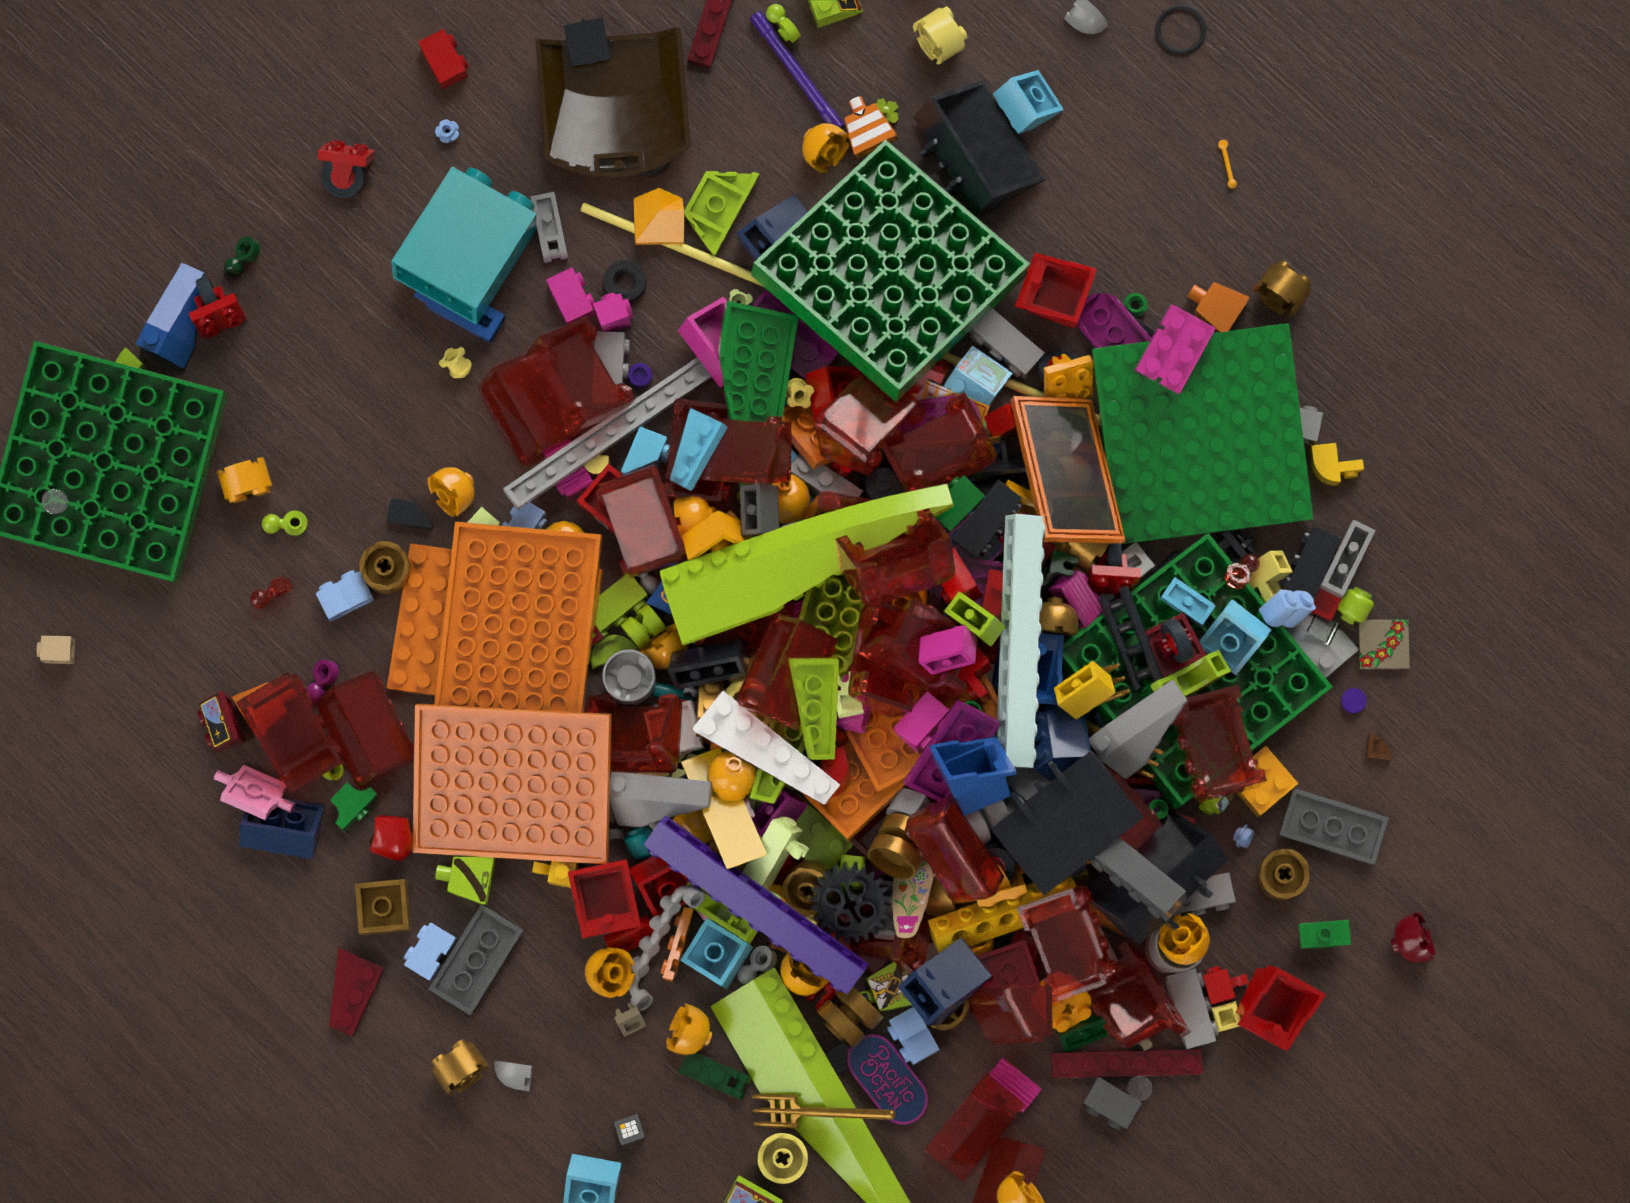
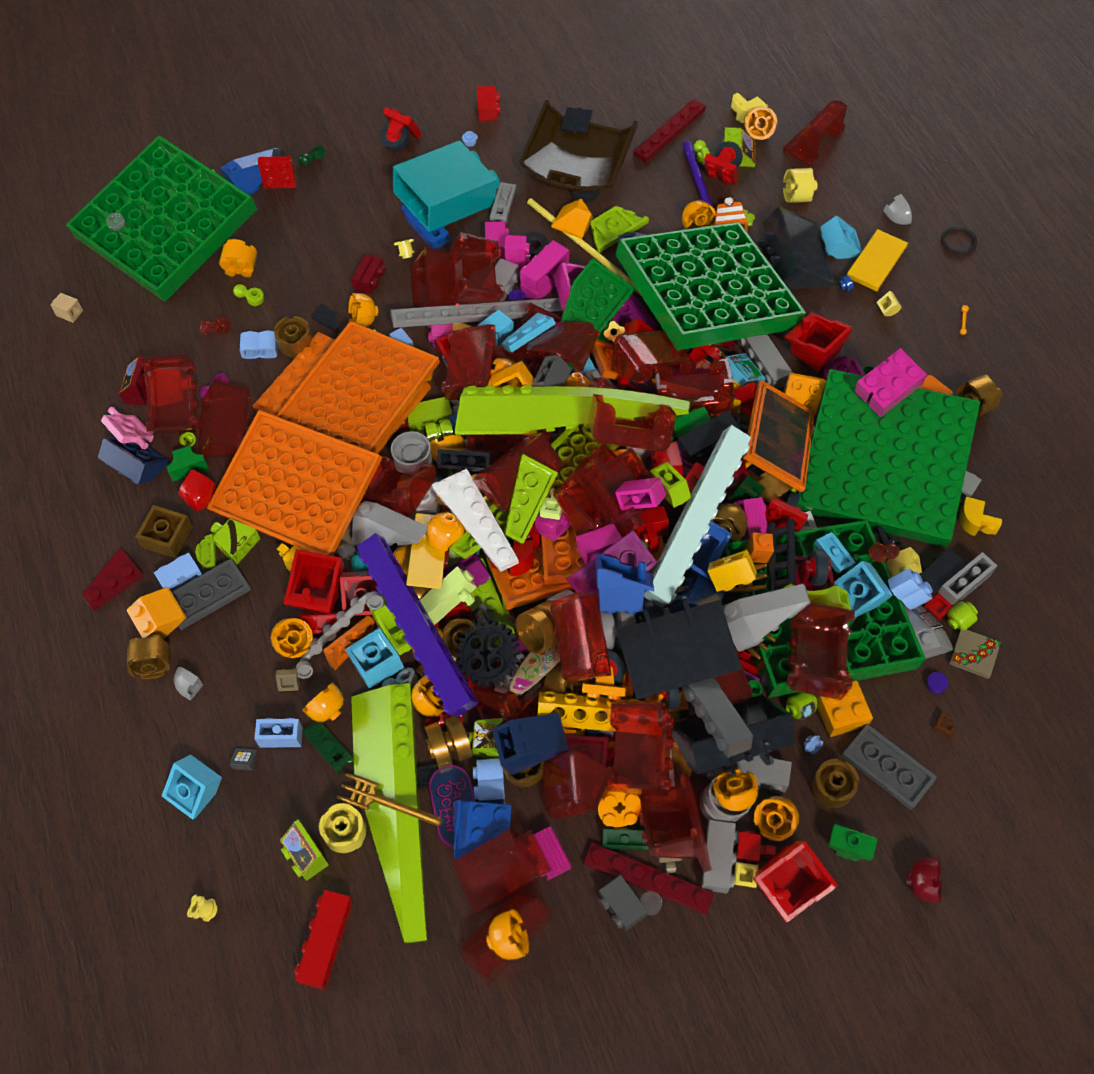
camera: 25 degrees right, 20 degrees down
(428, 425) = (368, 274): none -> dark red brick
(438, 1013) = (156, 613): none -> light orange slope
(443, 907) = (206, 552): none -> lime tile
(657, 1086) = (278, 732): none -> light blue brick
(661, 328) = (533, 275): none -> dark pink piece
(817, 851) = (481, 614): none -> slope
(826, 34) = (724, 162): none -> red plate
(929, 1093) = (477, 823): none -> blue piece
(1058, 171) = (846, 283): none -> blue plate
(1085, 115) = (877, 260): none -> yellow tile
(1102, 639) = (760, 547): none -> orange brick
(1125, 184) = (889, 304): none -> light yellow brick
(1236, 942) = (776, 818): none -> light orange cylinder

